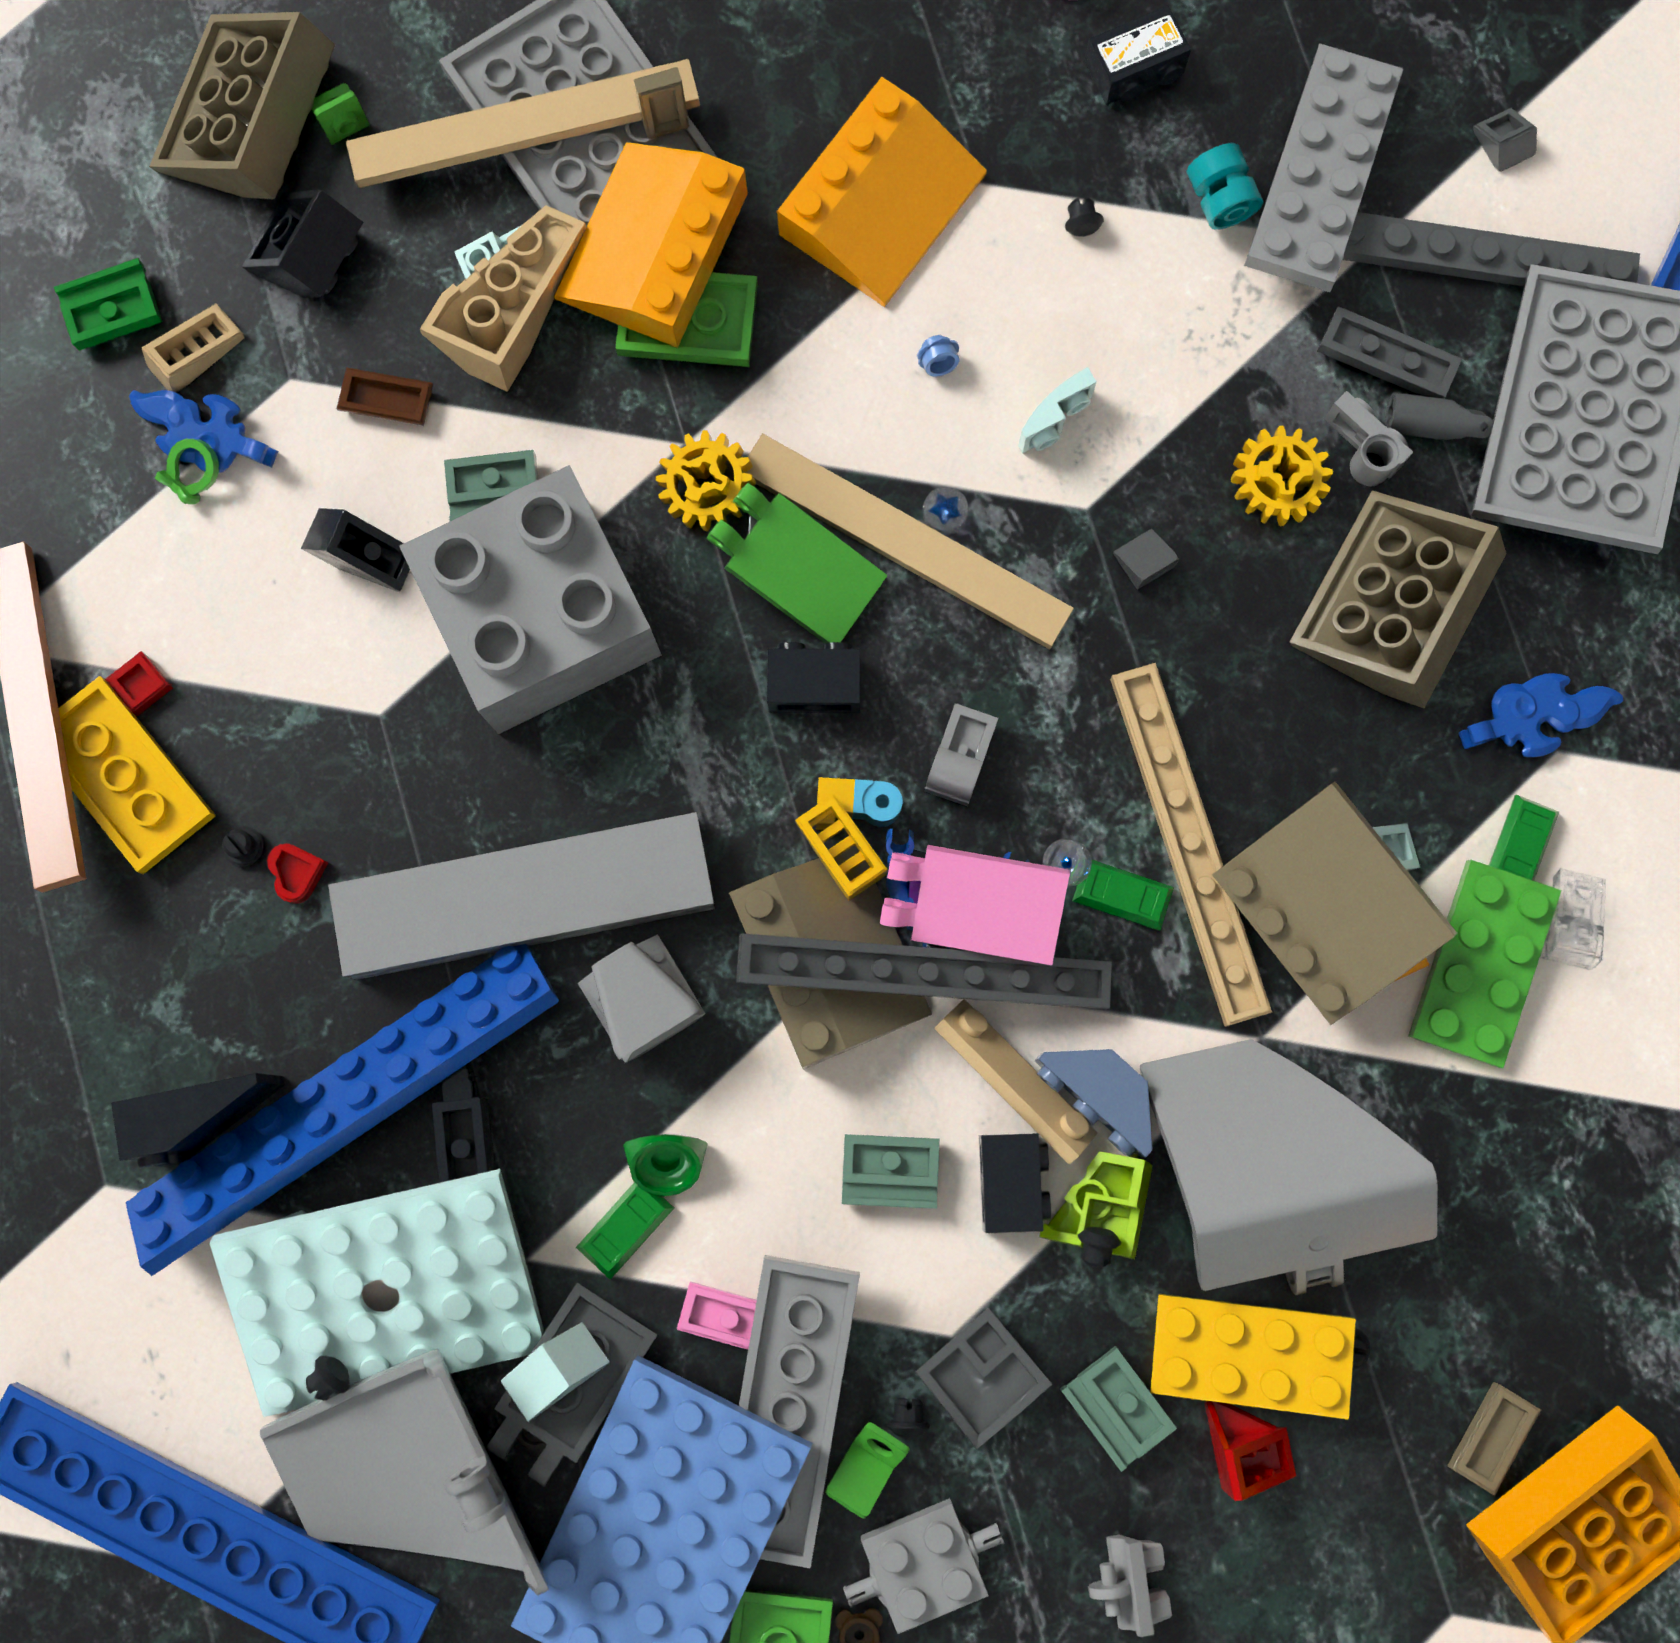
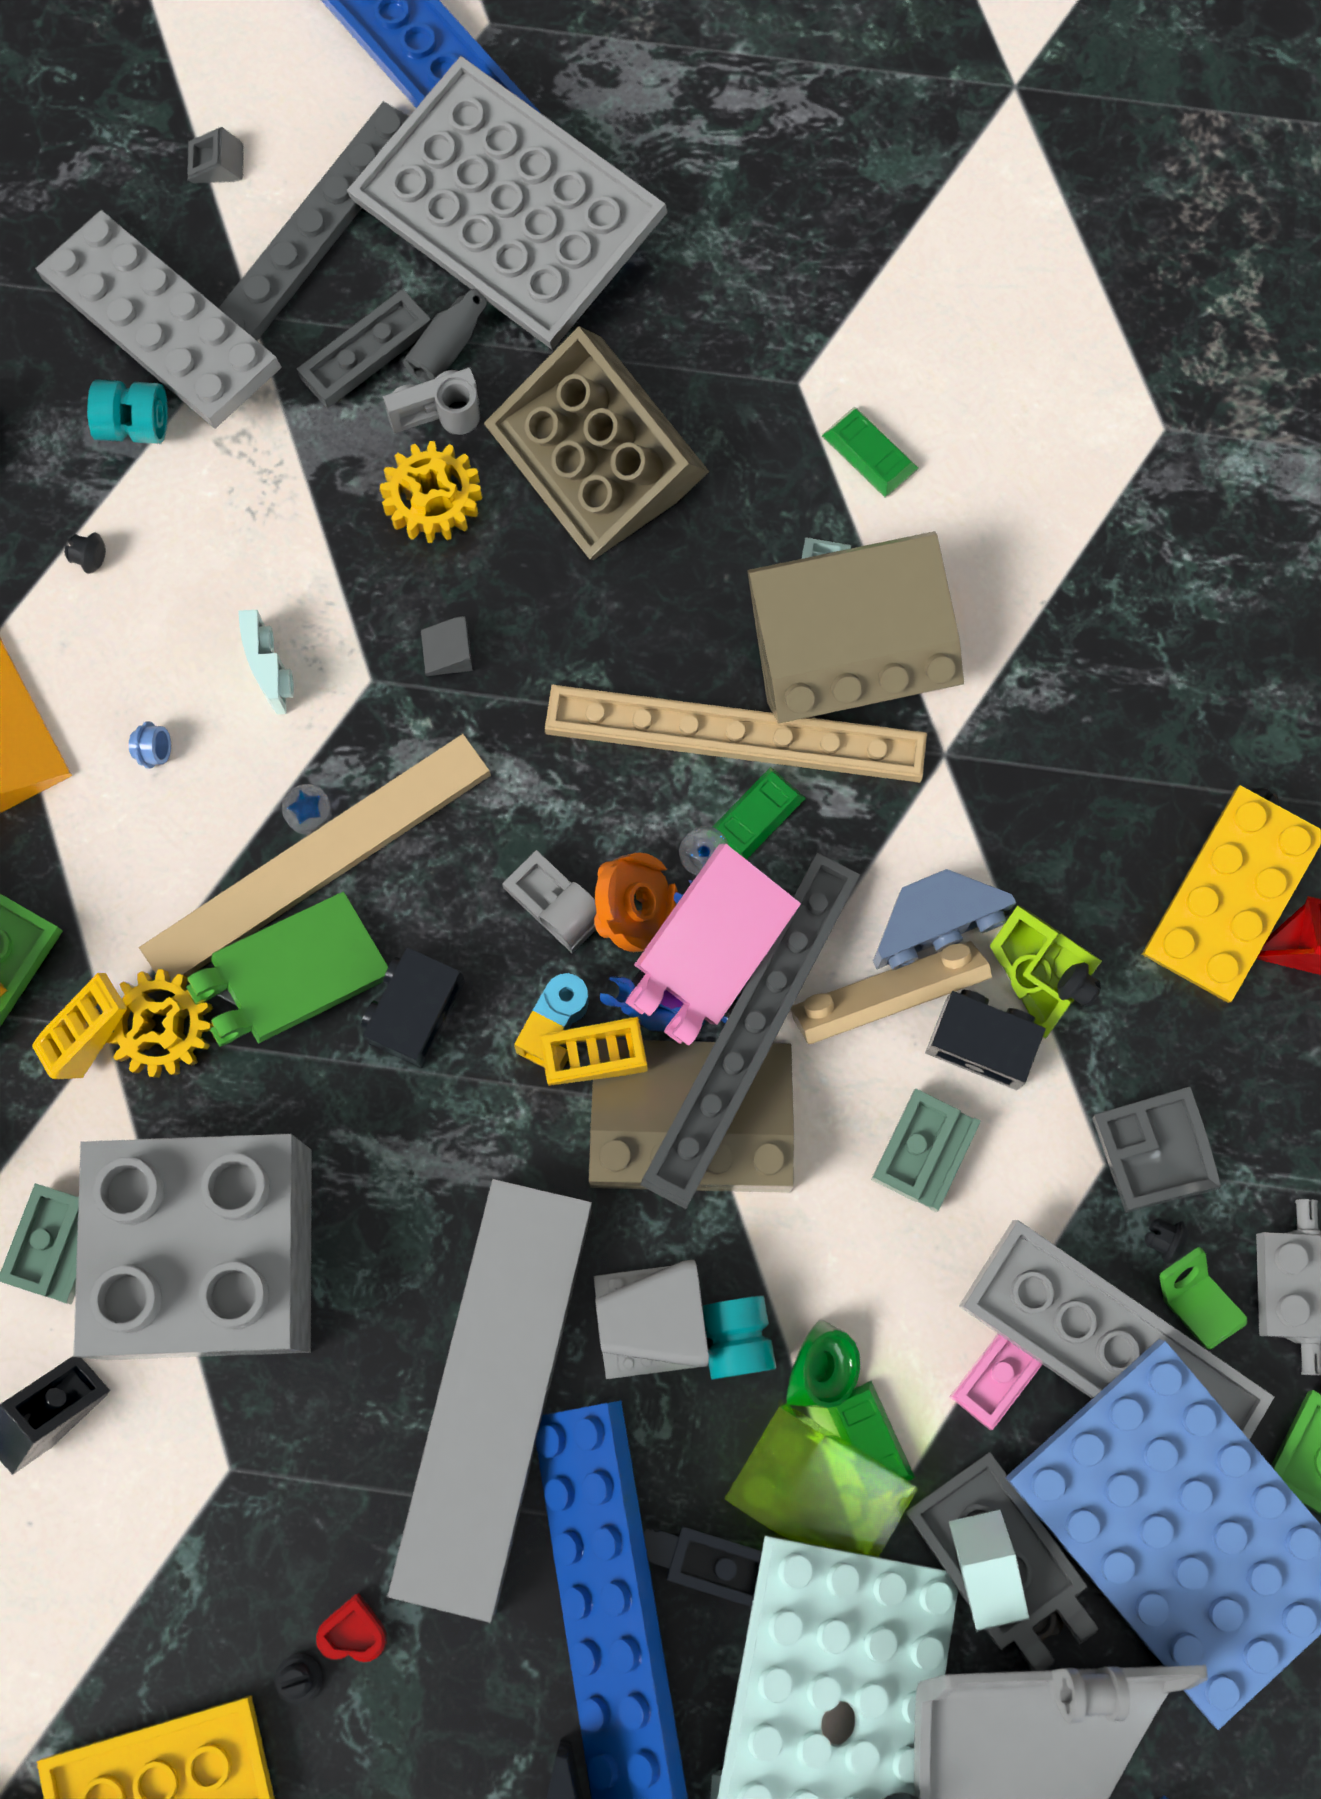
camera: 70 degrees left, 5 degrees down
(139, 683) = (65, 1722): red tile -> none
(563, 1199) = (819, 1487): none -> clear neon green slope
(657, 1077) = (738, 1337): none -> teal wheel
(665, 421) = (56, 1043): none -> yellow slope
(985, 802) = (615, 904): none -> orange plate
(1118, 1408) = (1234, 1037): sand green plate -> none
(1283, 1168) = (1075, 785): light grey panel -> none
(1488, 967) = (981, 541): bright green plate -> none
(1523, 708) = (747, 373): blue piece -> none
(1578, 921) = (965, 438): clear plate -> none

